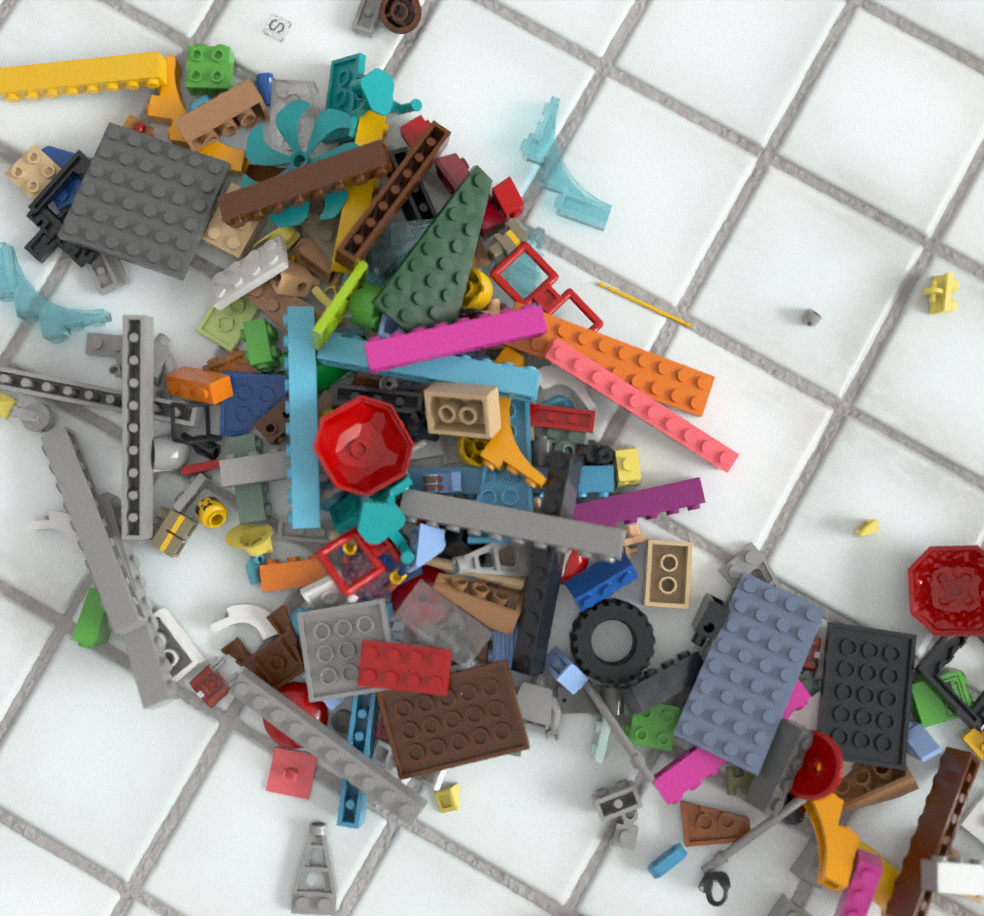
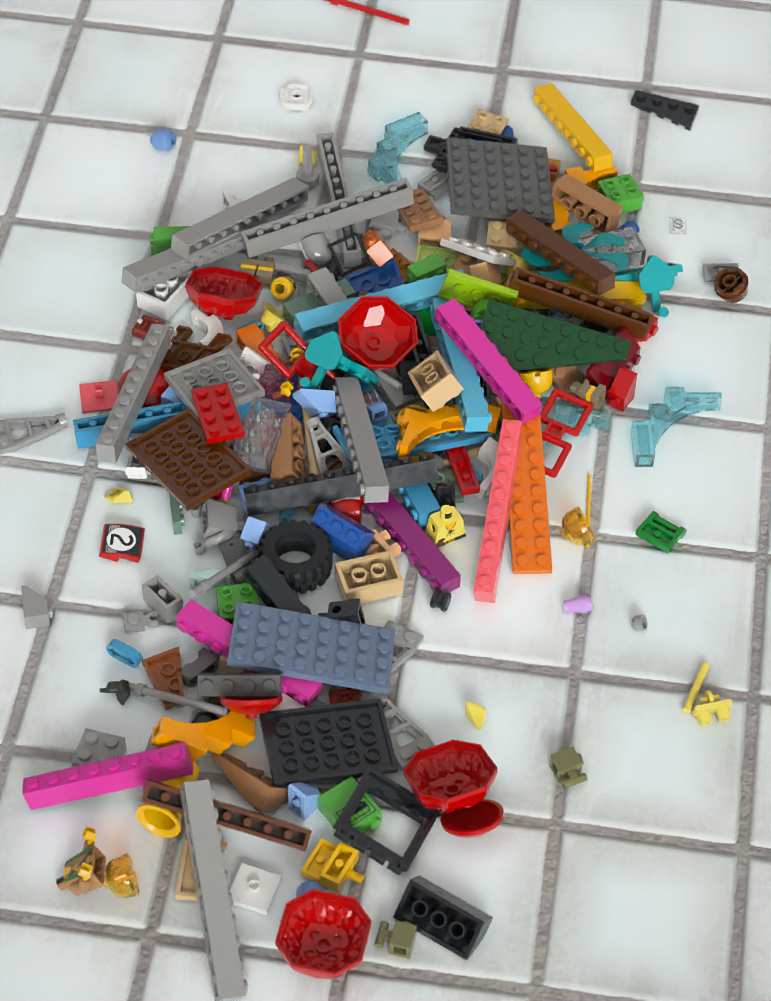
camera: 65 degrees right, 35 degrees down
(167, 308) = (421, 214): none -> medium nougat plate
(188, 303) = (433, 235): none -> light nougat torso
(200, 587) = (223, 291): none -> red rock
(516, 816) = (121, 542): none -> slope
(676, 329) = (576, 528): none -> clear yellow cylinder
(709, 248) = (658, 535): none -> green plate
(715, 507) = (440, 600): none -> black wheel
(717, 793) = (204, 663): none -> dark grey leg
(768, 368) = (579, 604): none -> lavender cone
(886, 605) = (404, 753): none -> light grey plate
(905, 296) = (695, 688): none -> light yellow bar
(960, 464) = (567, 767): none -> olive brick

